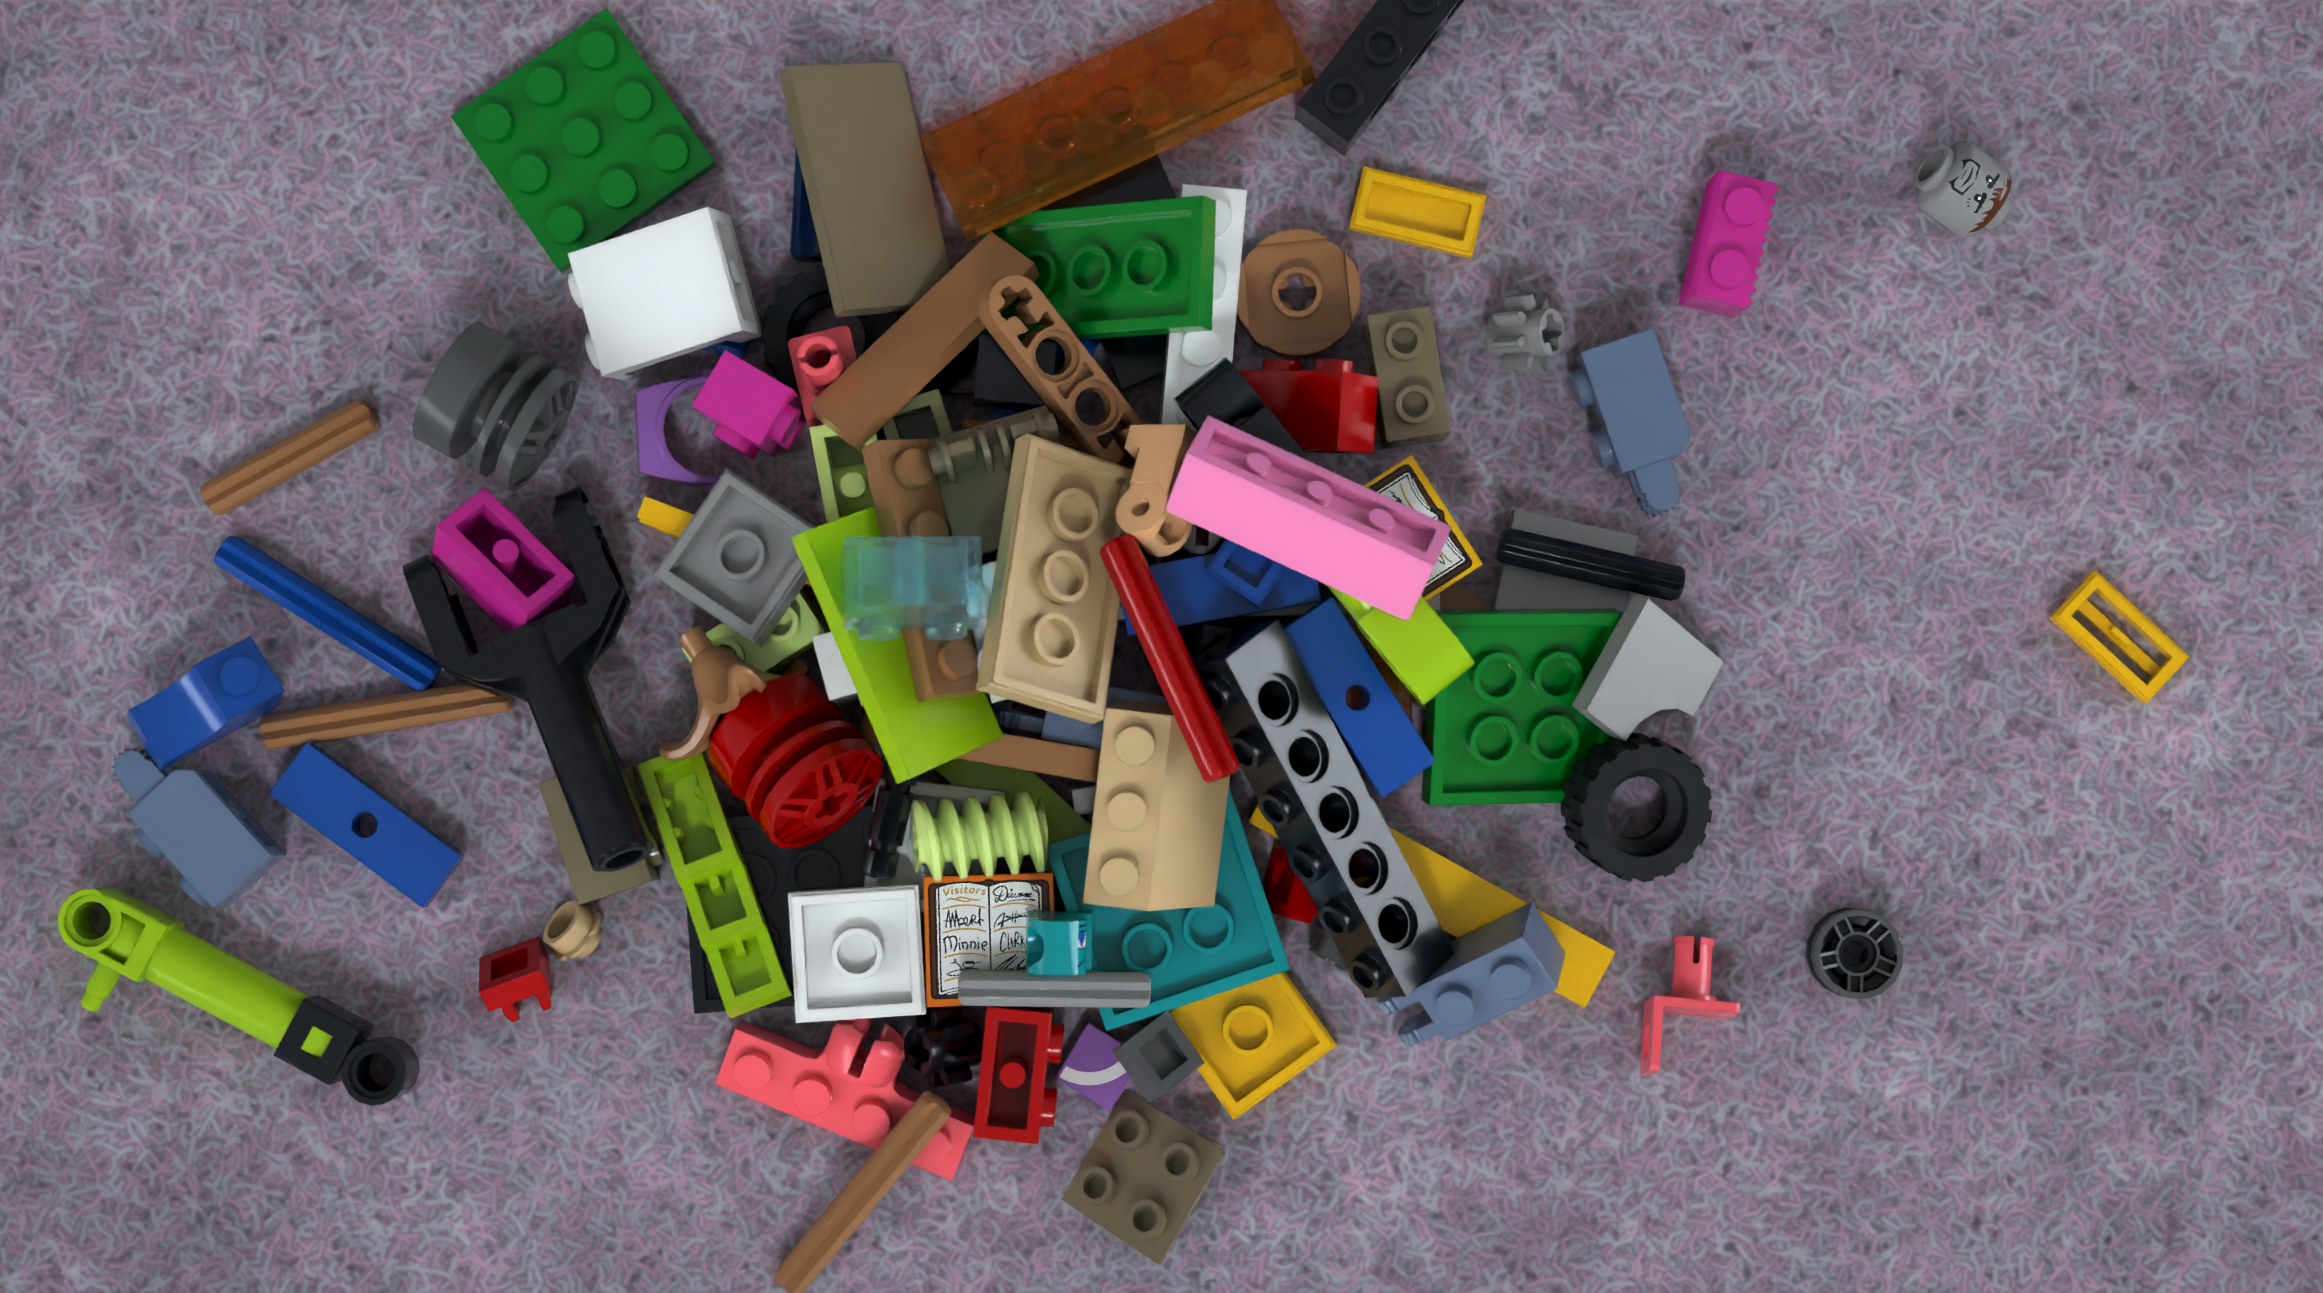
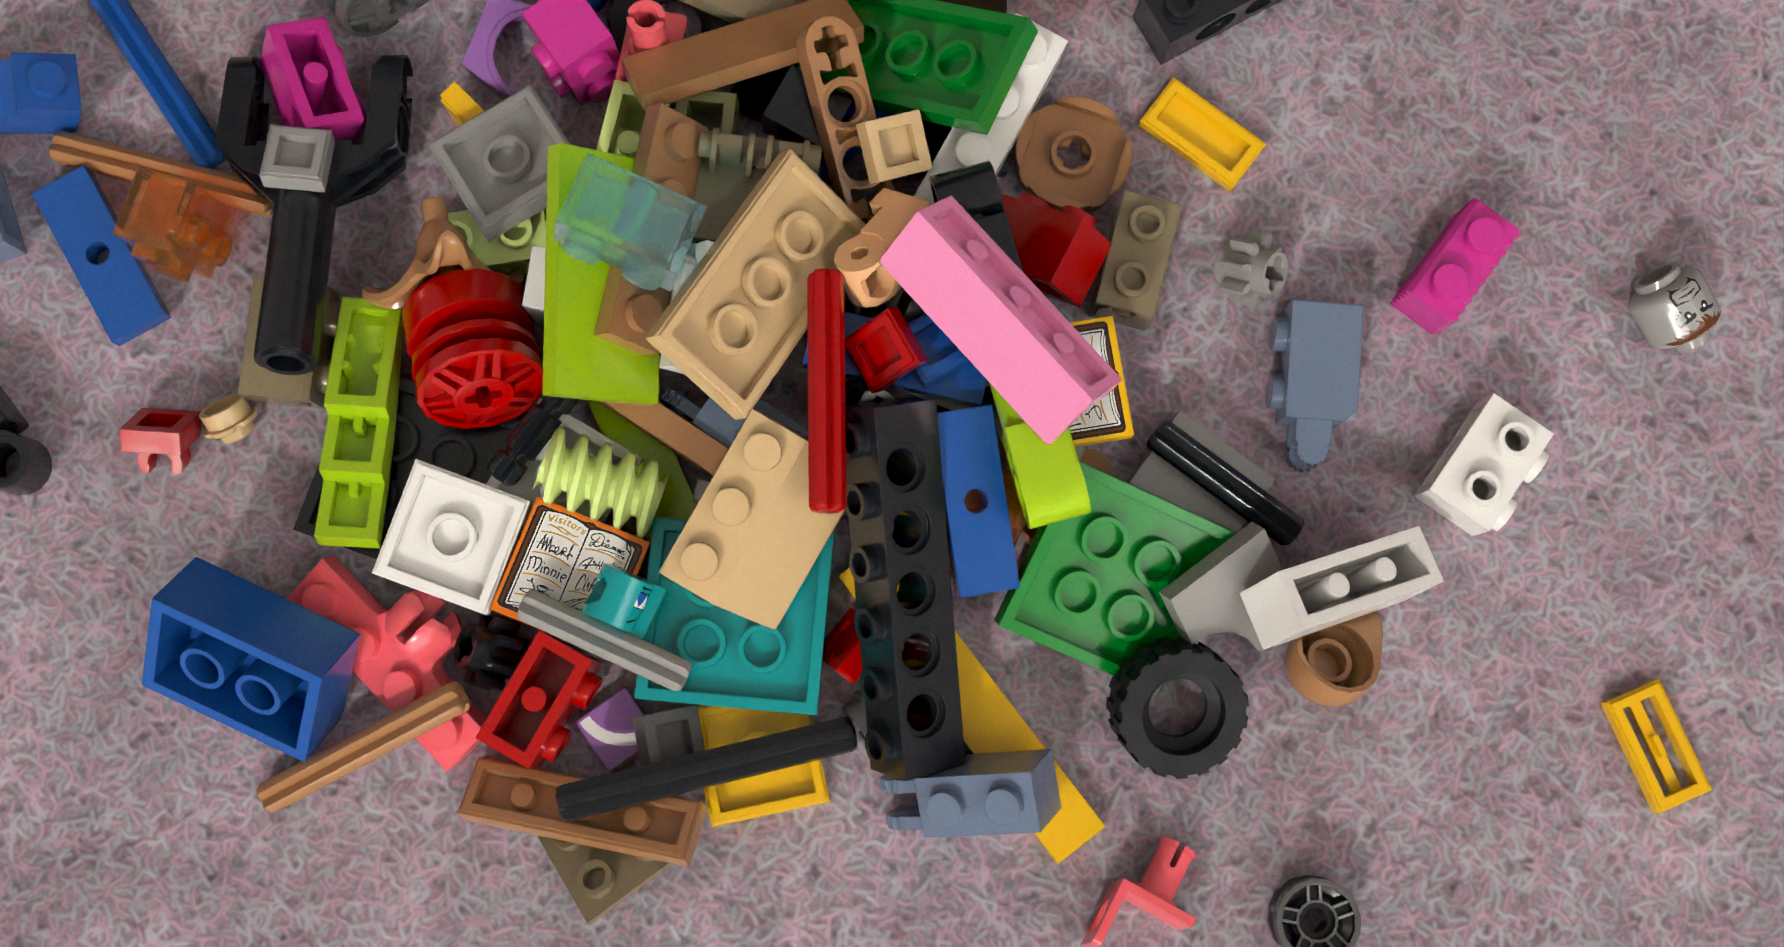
camera: 20 degrees right, 5 degrees down
(437, 766) = (174, 226): none -> clear orange brick
(533, 648) = (297, 158): none -> light grey tile
(715, 1157) = (249, 658): none -> blue brick
(1104, 1160) = (526, 802): none -> medium nougat tile
(1123, 378) = (894, 146): none -> tan plate
(1205, 590) = (884, 350): none -> red tile
(1207, 1067) = (705, 769): none -> black axle
(1747, 622) = (1340, 587): none -> white brick
(1764, 676) = (1336, 662): none -> medium nougat cap
(1840, 433) = (1486, 466): none -> white brick

